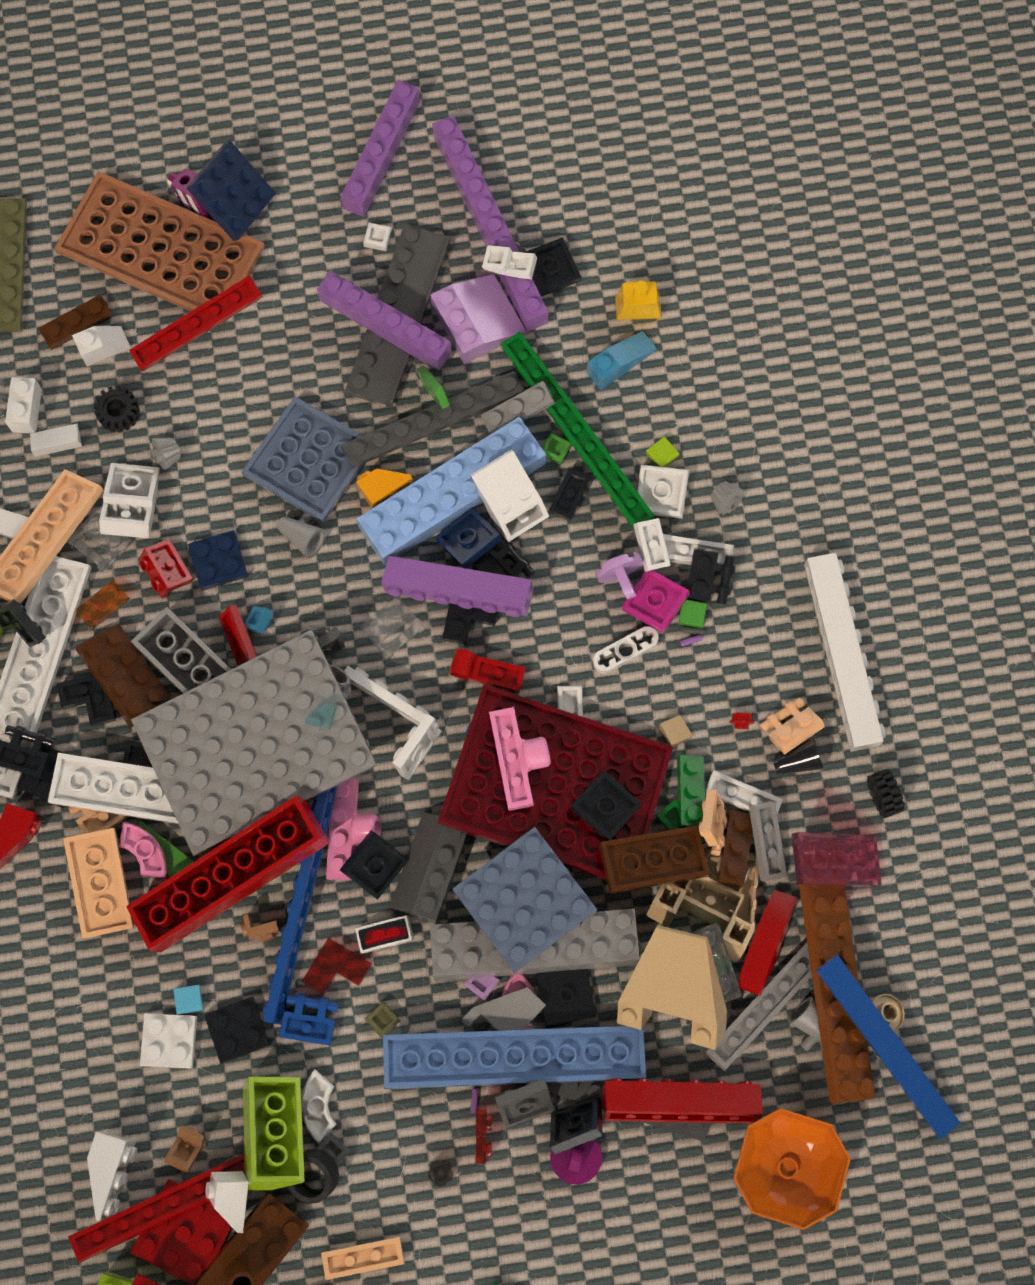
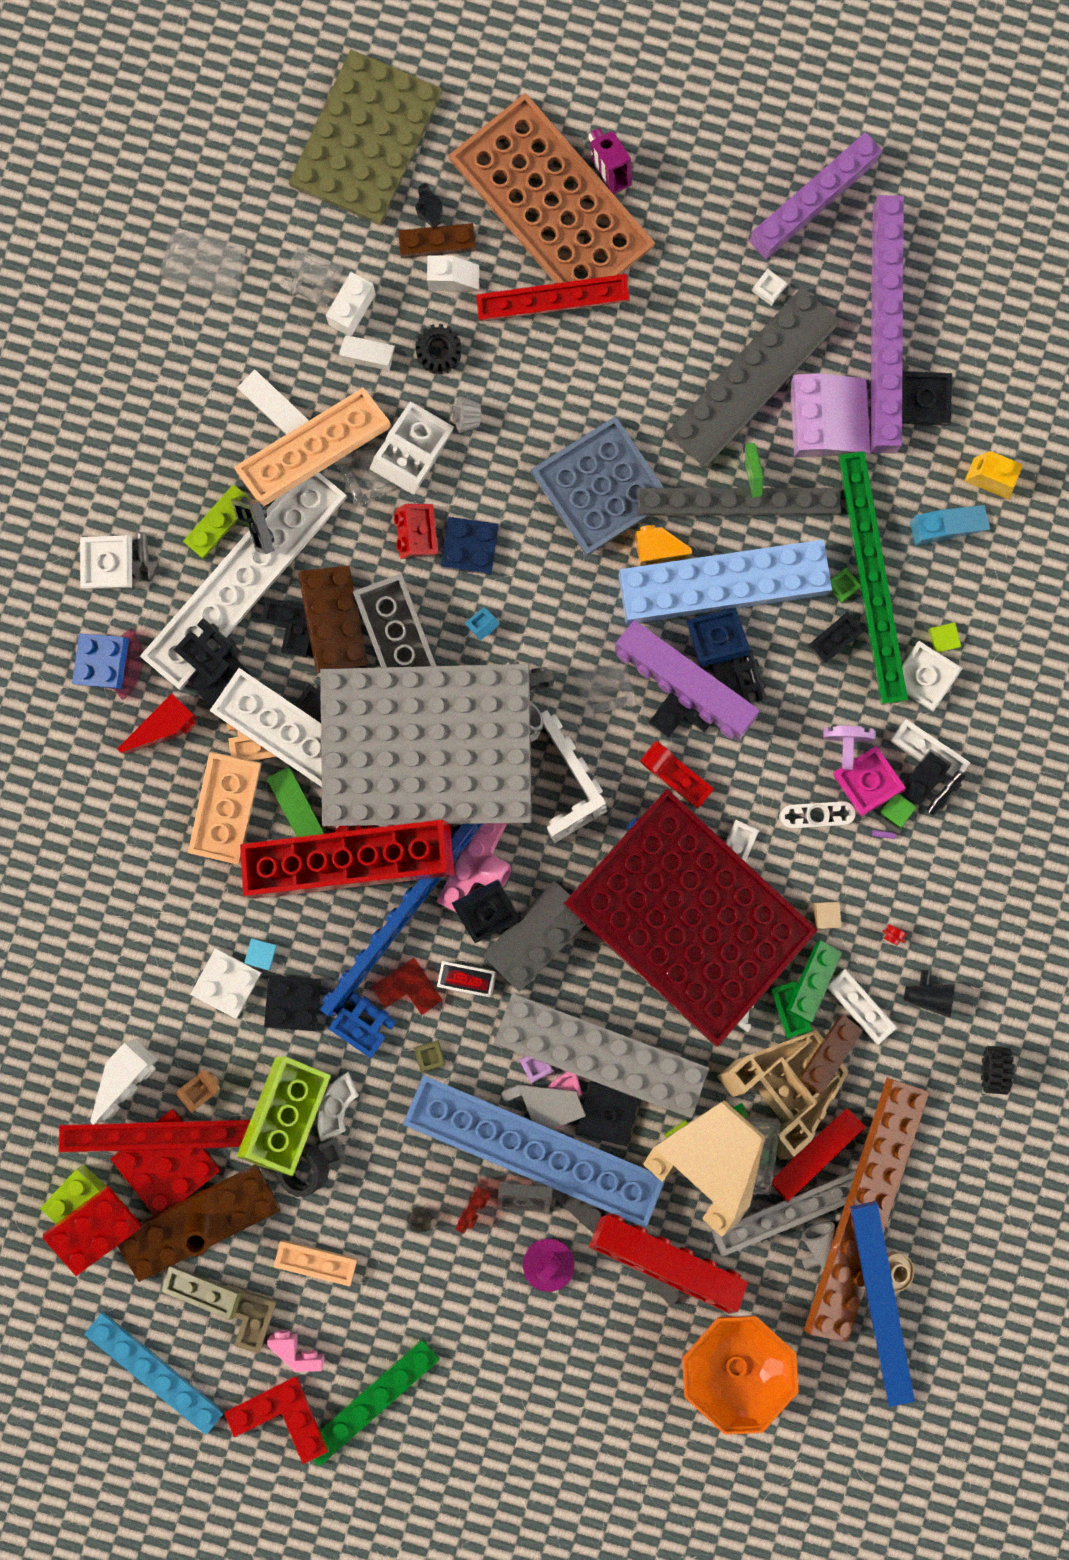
camera: 20 degrees right, 10 degrees up
(56, 297) = (429, 206): none -> black piece
(102, 604) = (342, 539): clear orange plate -> none
(146, 849) = (281, 796): bright pink tile -> none
(229, 1196) = (219, 1155): white slope -> none
(231, 190) = (647, 175): dark blue plate -> none
(237, 635) = (455, 633): red plate -> none
(265, 932) = (357, 926): medium nougat bracket -> none
(302, 535) = (560, 558): light grey piece -> none
(322, 716) = (500, 754): clear light blue tile -> none
(384, 320) = (737, 380): medium lavender brick -> none
(474, 1100) = (479, 1170): medium lavender piece -> none
(509, 263) = (887, 379): white slope -> none
(509, 496) = (777, 616): white slope -> none
(517, 757) = (666, 877): bright pink plate -> none
(522, 405) = (827, 528): light grey plate -> none
(524, 899) = (611, 1014): sand blue plate -> none
(576, 1124) = (562, 1239): black plate -> none
(606, 806) = (728, 961): black plate -> none
(651, 544) = (891, 726): white plate -> none
(654, 859) = (749, 1032): reddish brown plate -> none
(713, 821) = (823, 1020): light nougat plate -> none
(726, 497) = (986, 711): light grey piece -> none
(767, 840) = (864, 1061): light grey plate -> none
(794, 731) = (943, 969): light nougat plate -> none
(836, 859) = (919, 1112): clear pink plate -> none
(844, 652) = (1024, 914): white brick -> none

